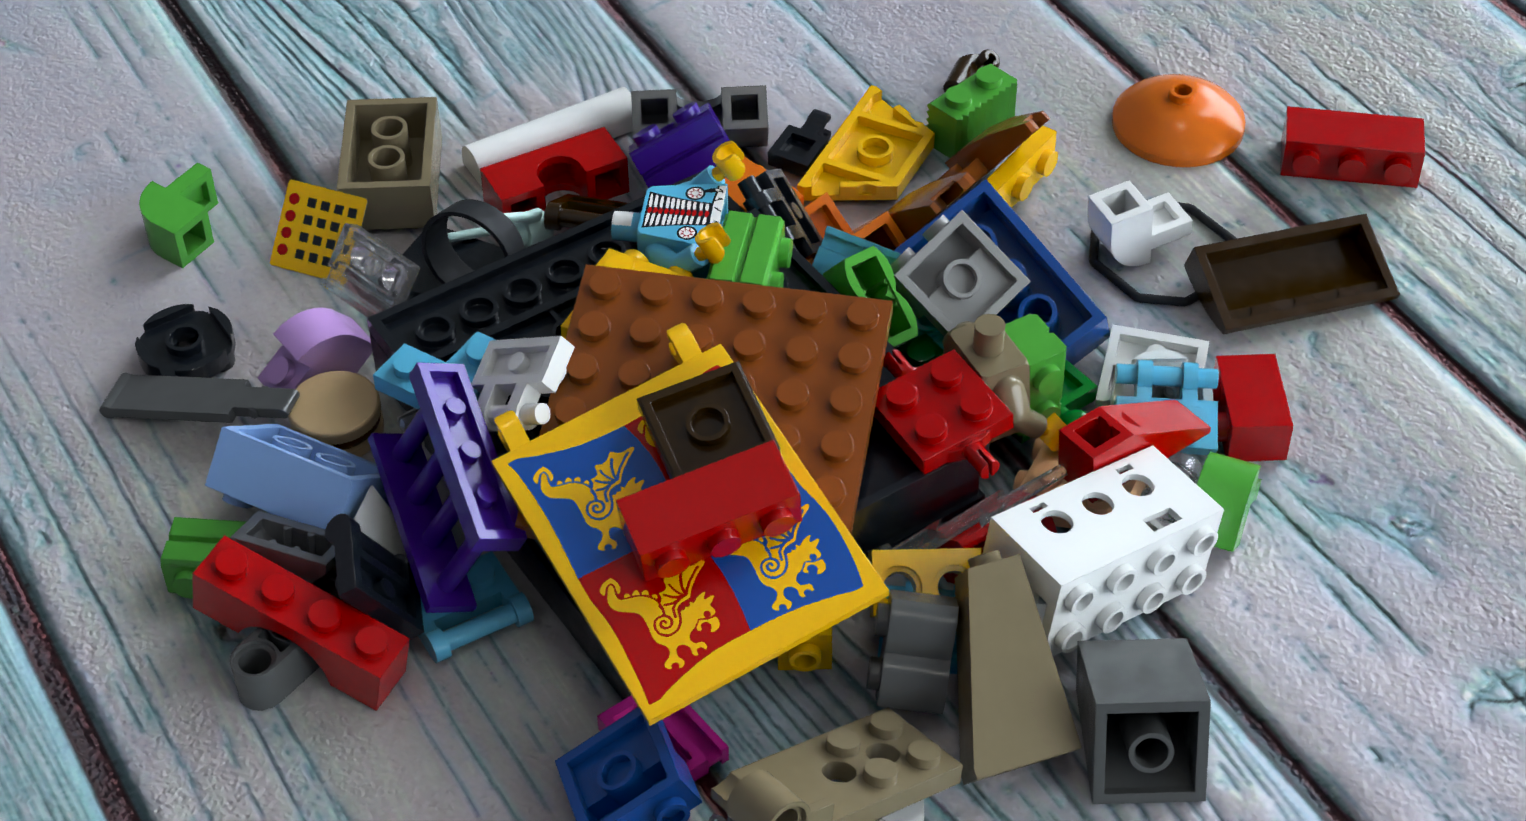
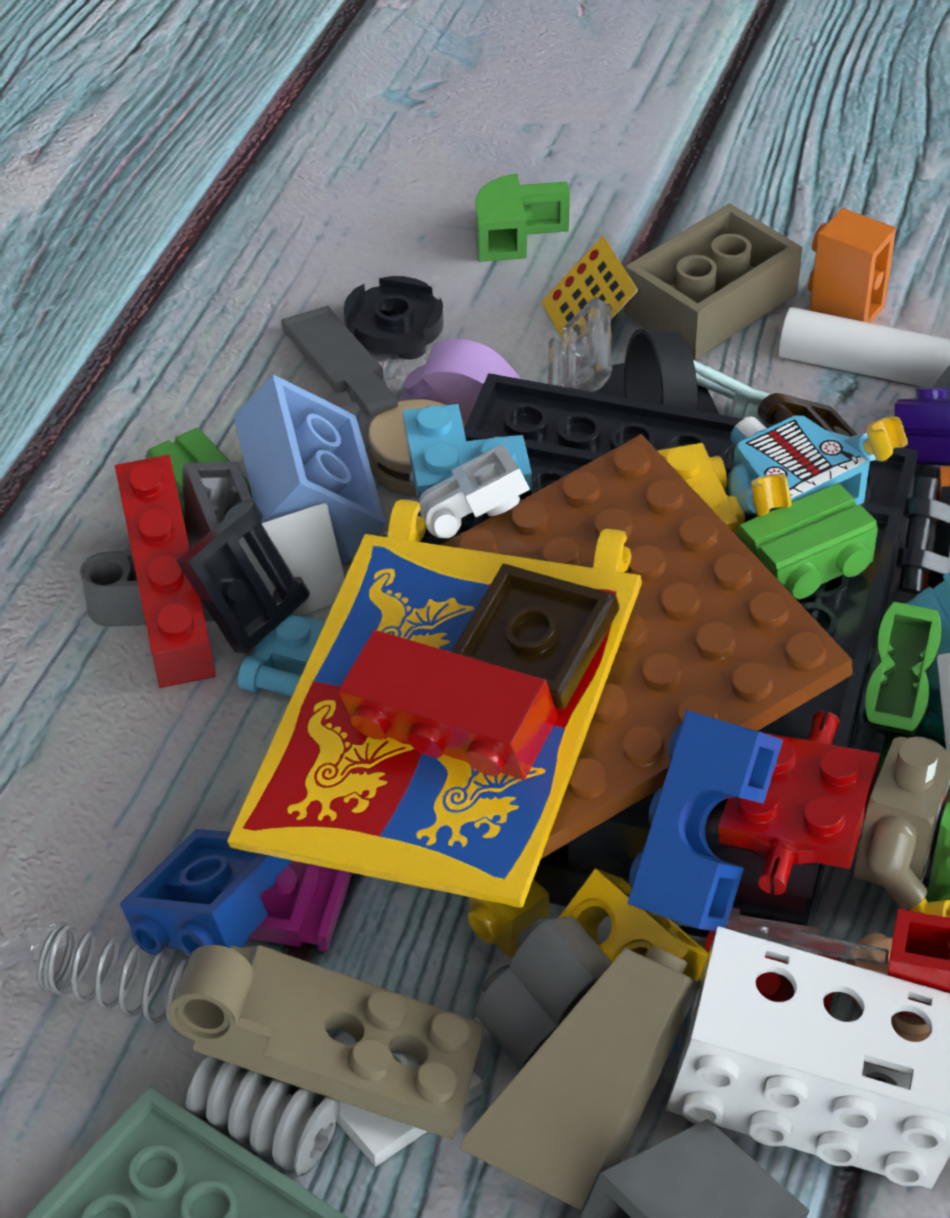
camera: 50 degrees right, 0 degrees up
(476, 491) = (396, 473): dark purple fence -> none
(477, 91) = (851, 266): none -> orange brick
(582, 164) = (822, 371): red arch -> none
(932, 508) = (677, 869): none -> blue arch

